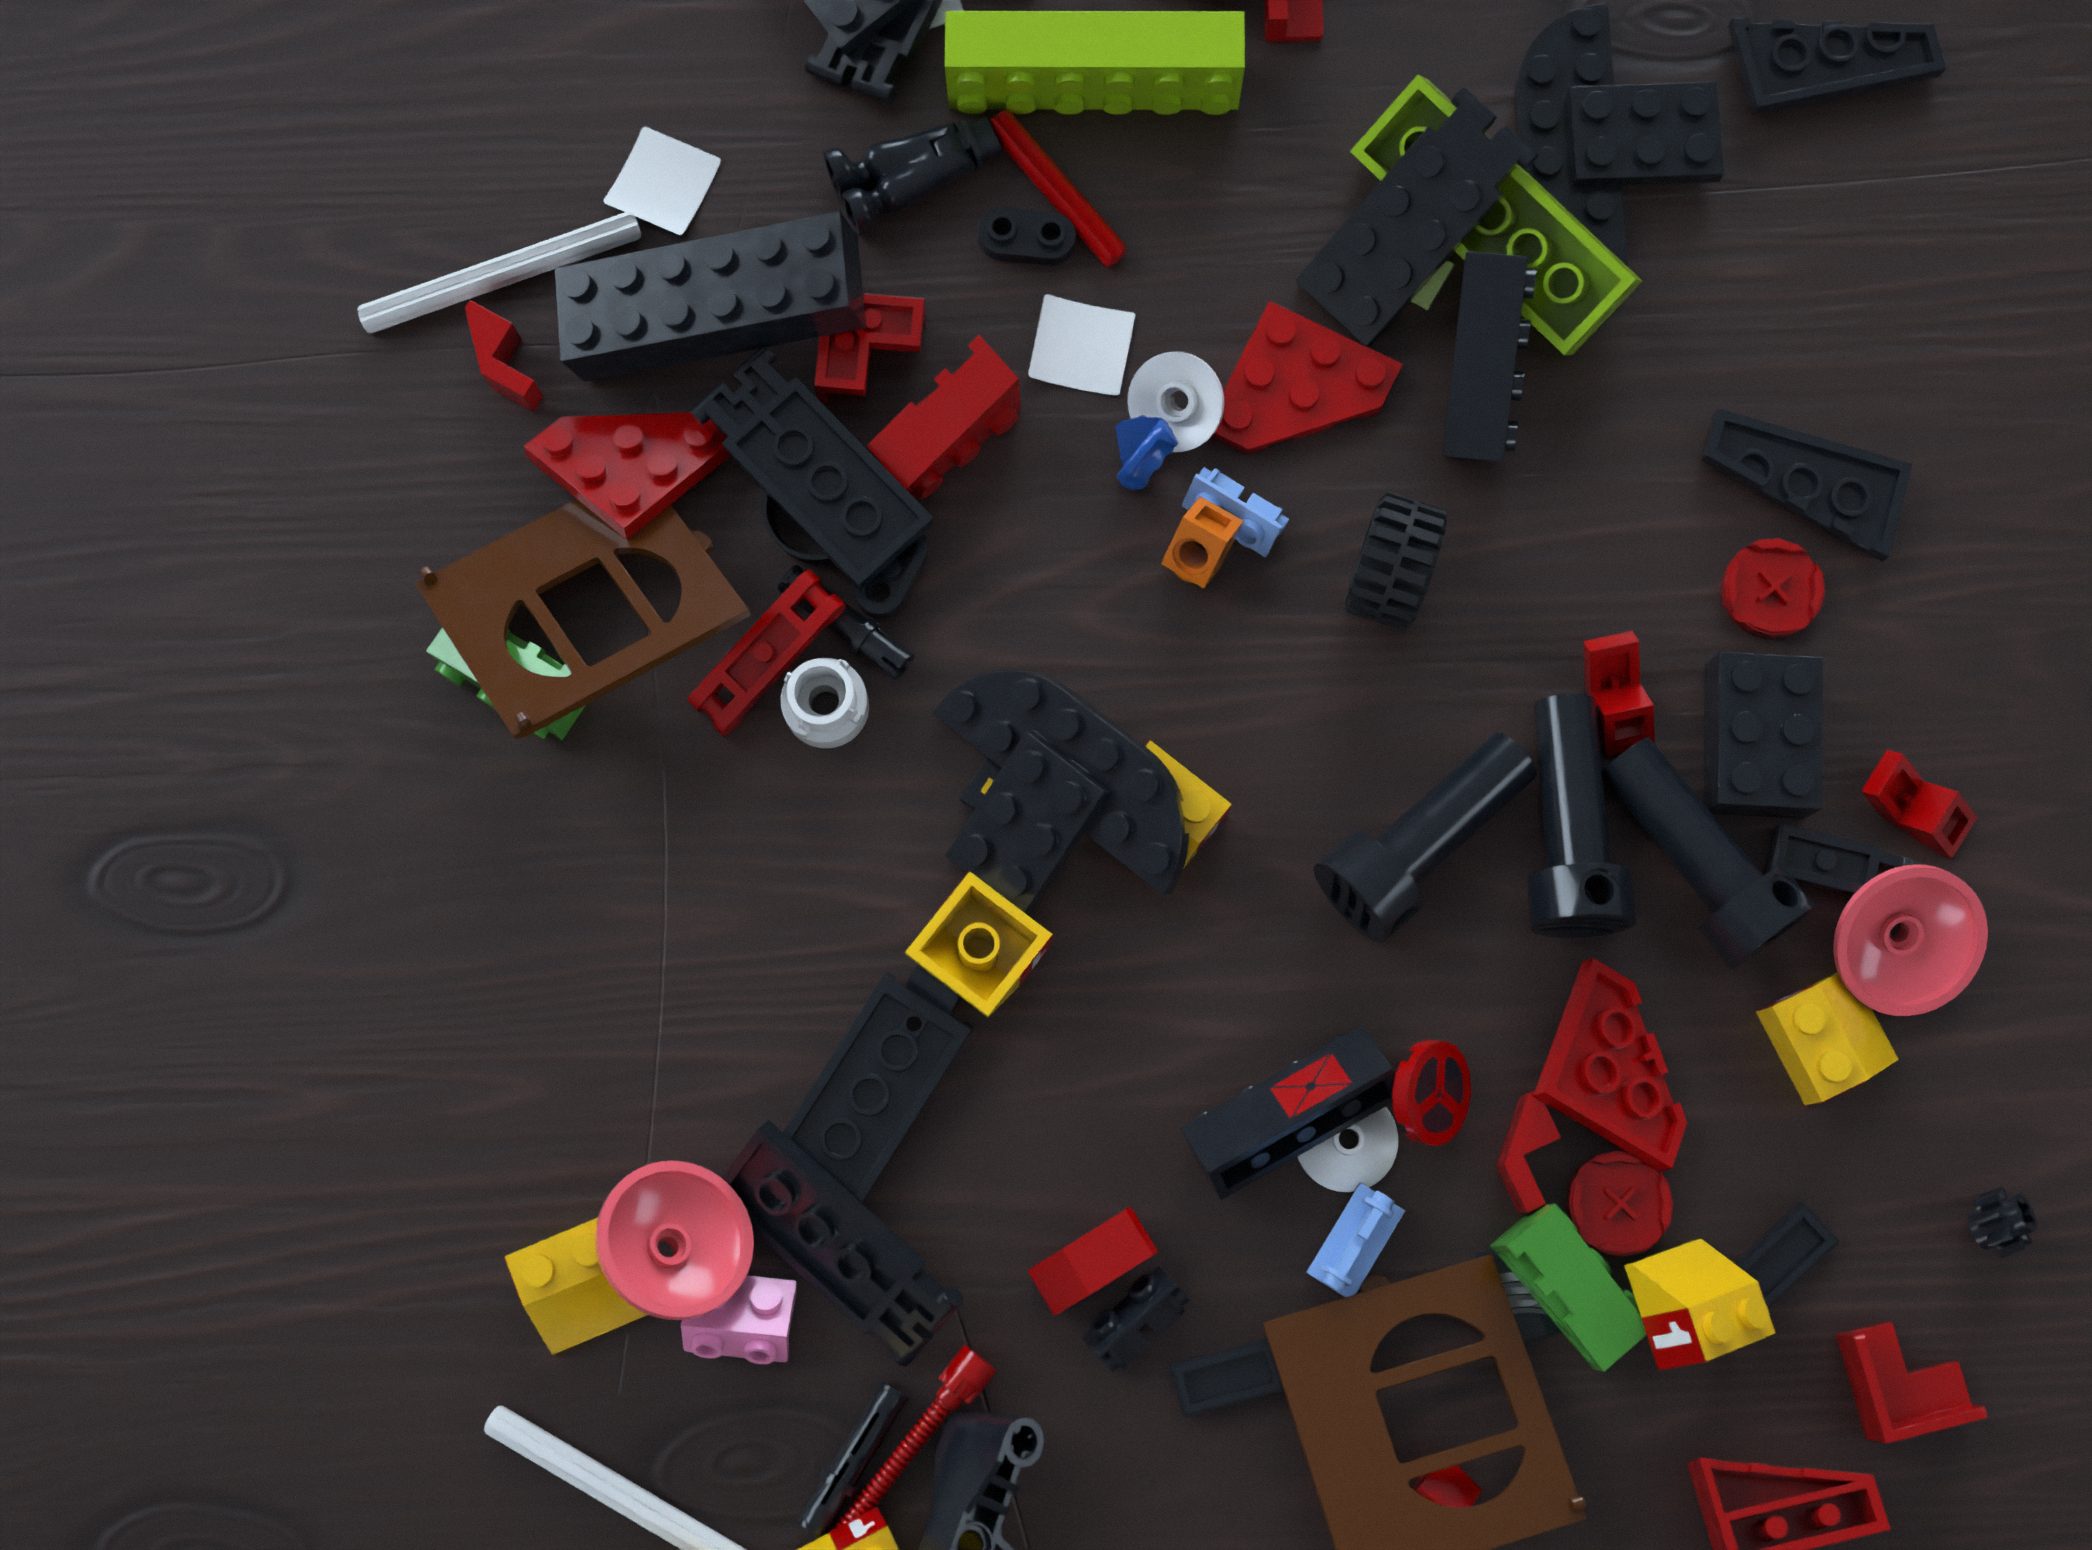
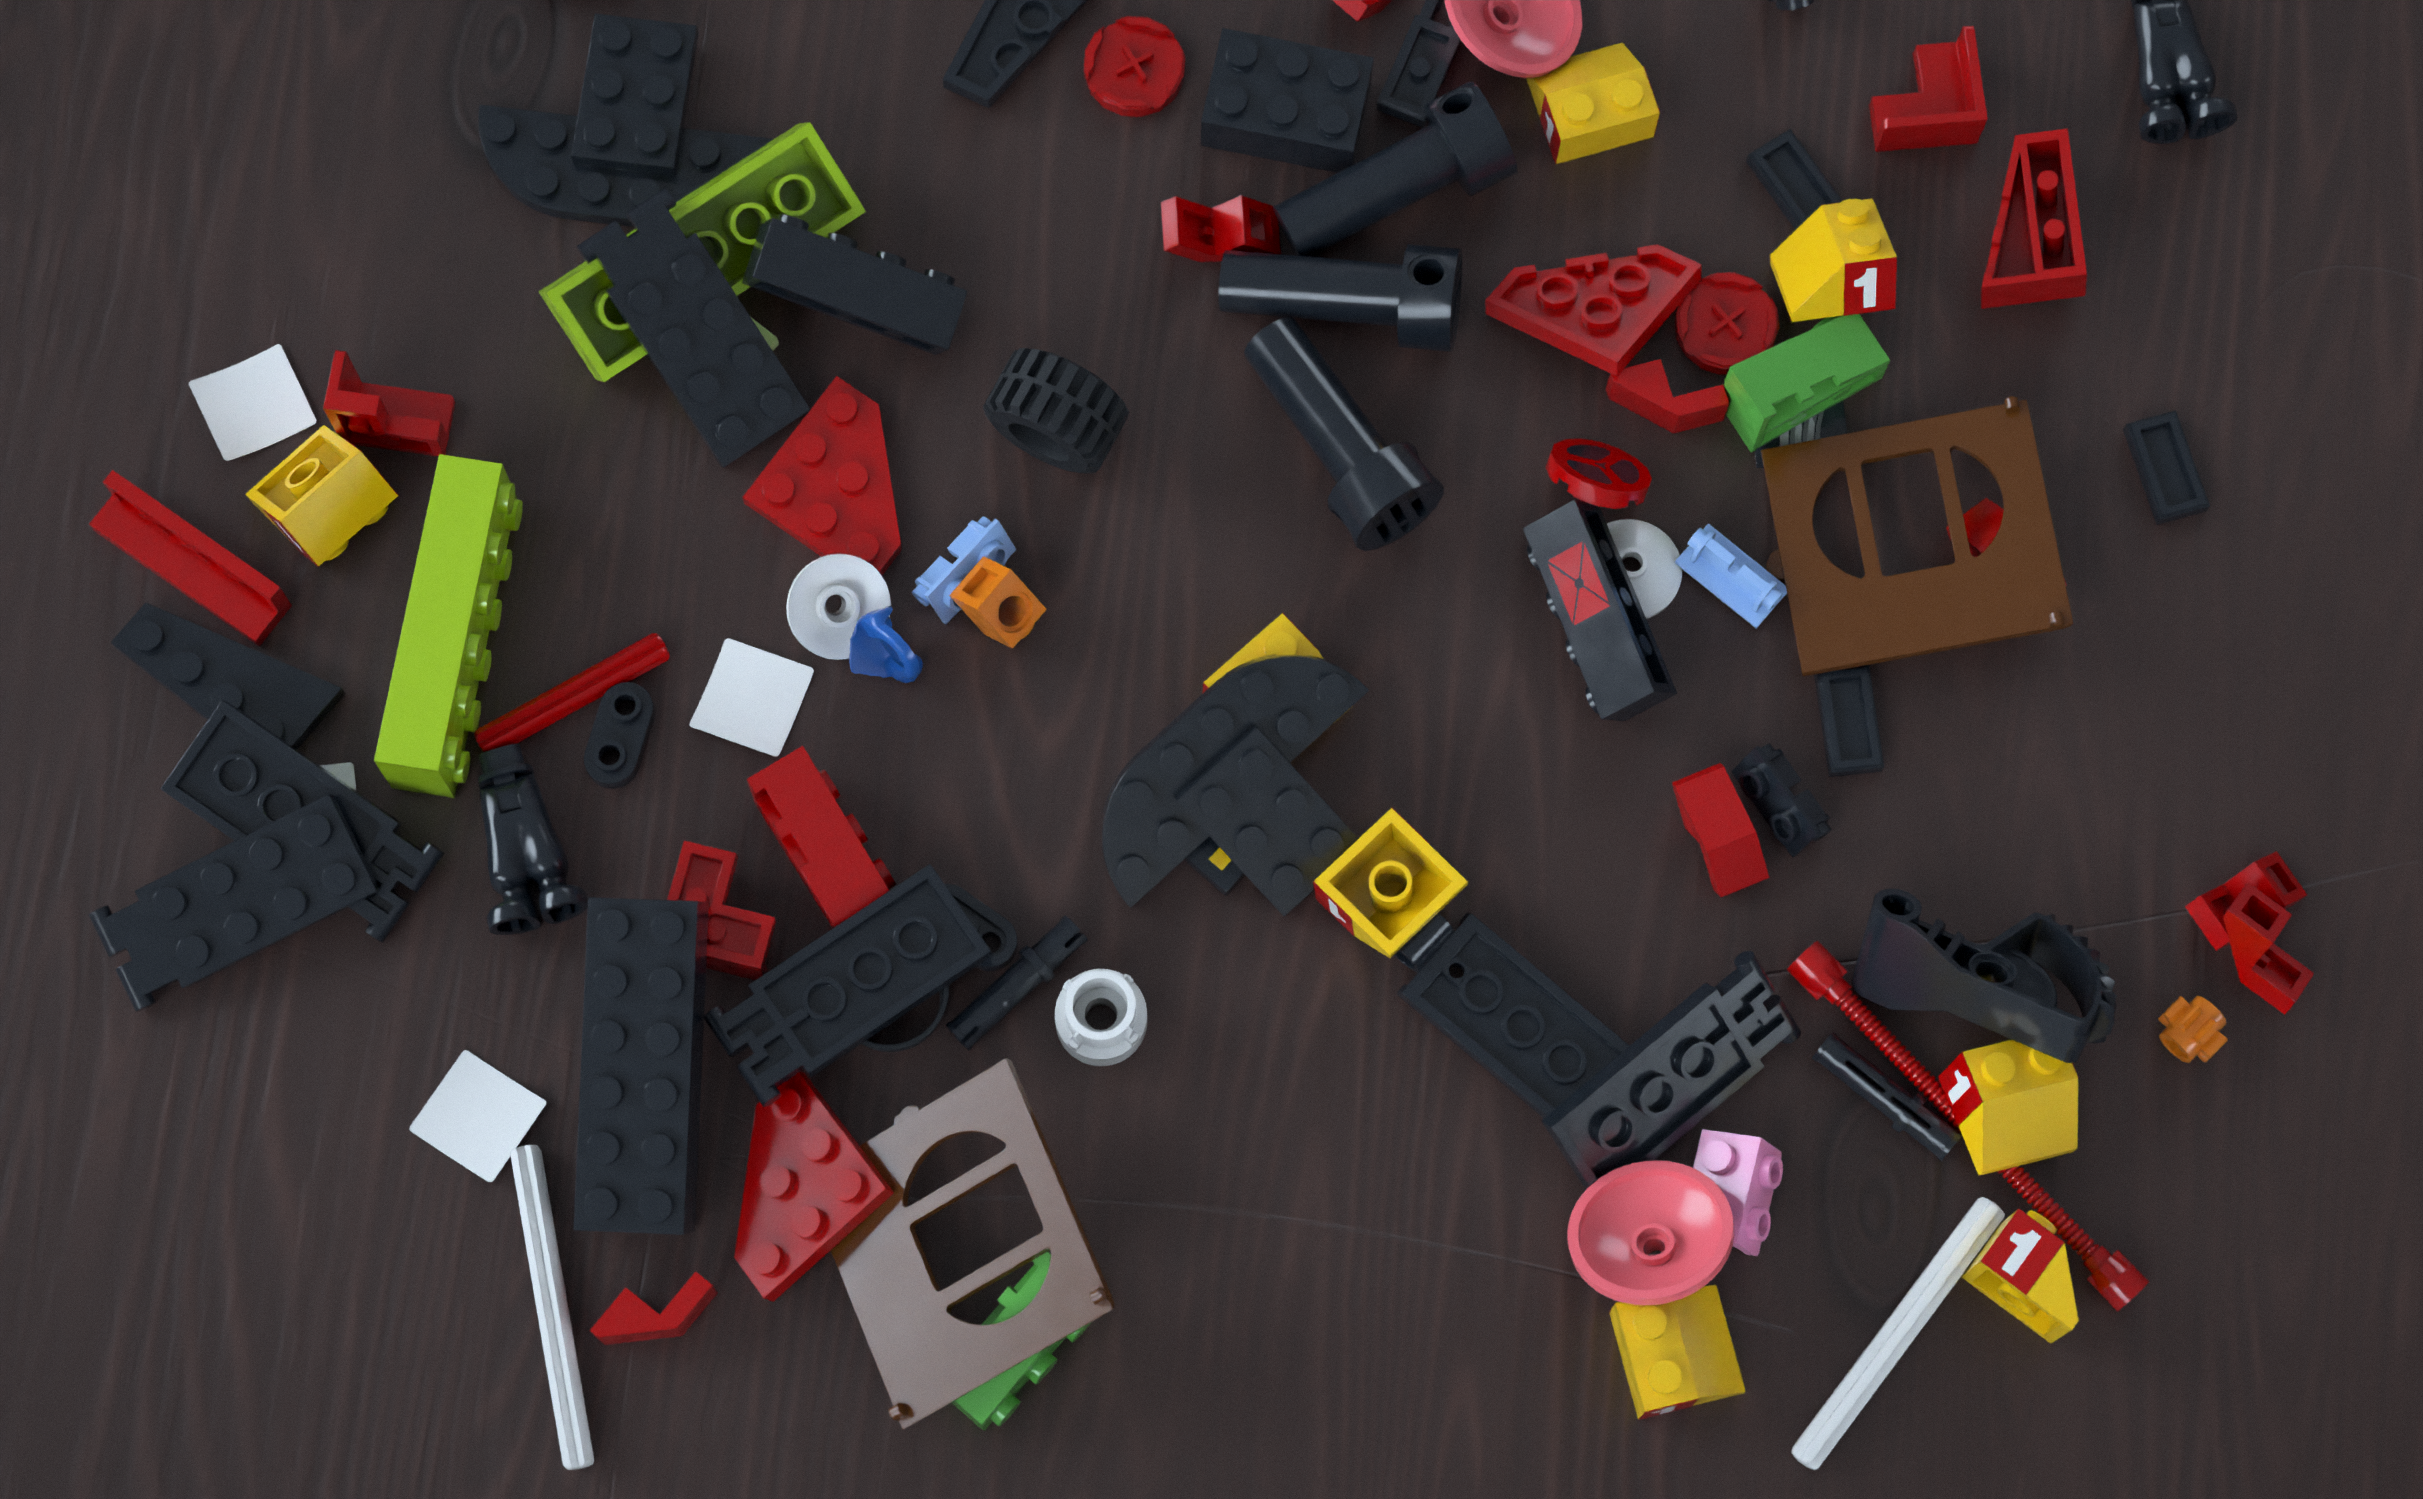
camera: 85 degrees left, 5 degrees down
(766, 652) = (1041, 1065): red plate -> none

